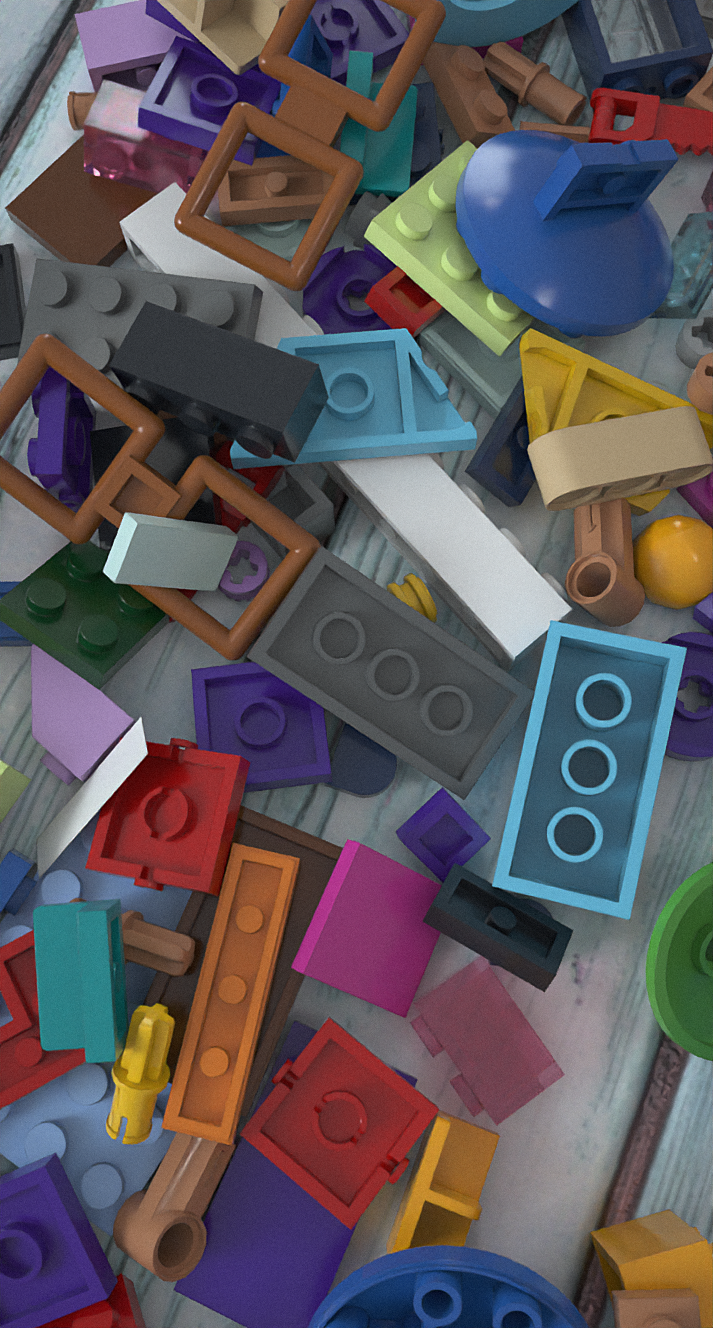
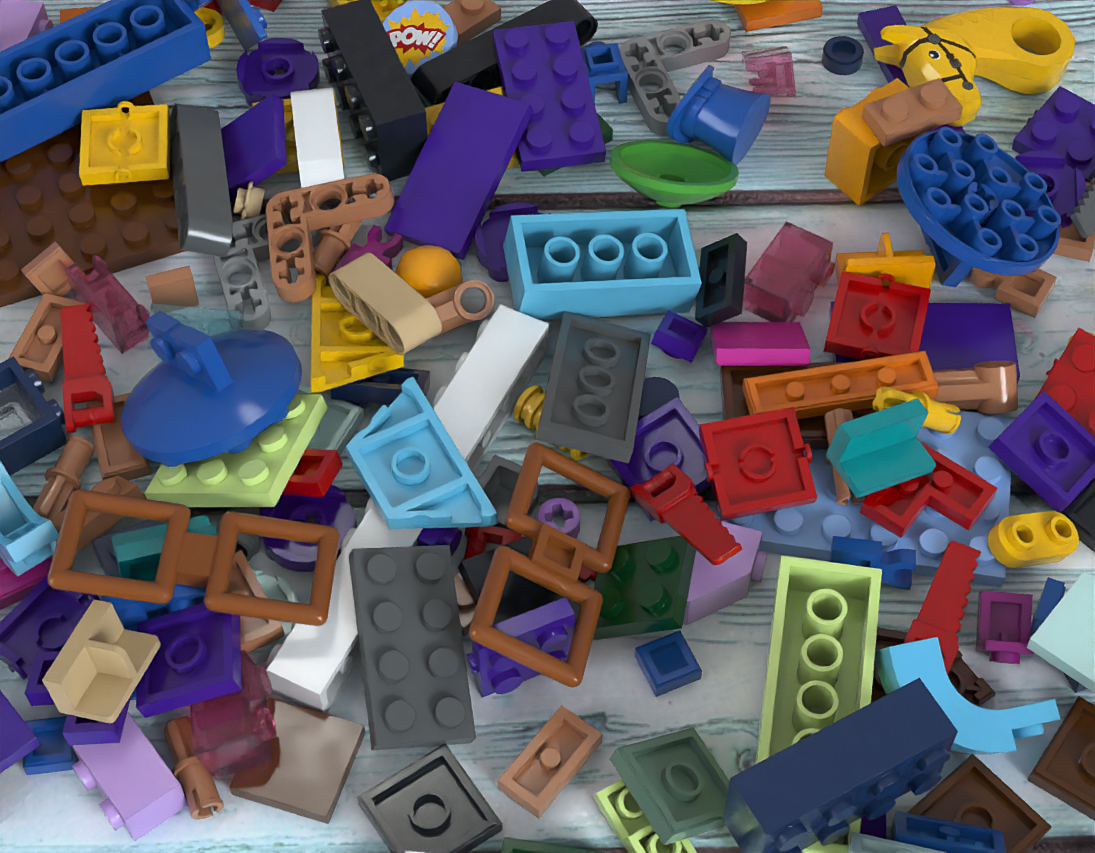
camera: 115 degrees left, 20 degrees down
(91, 796) = (766, 514): white sticker -> none
(131, 685) = (674, 500): none -> red piece
(169, 553) = (584, 527): light aqua tile -> none
(221, 382) = (451, 525): black brick -> none

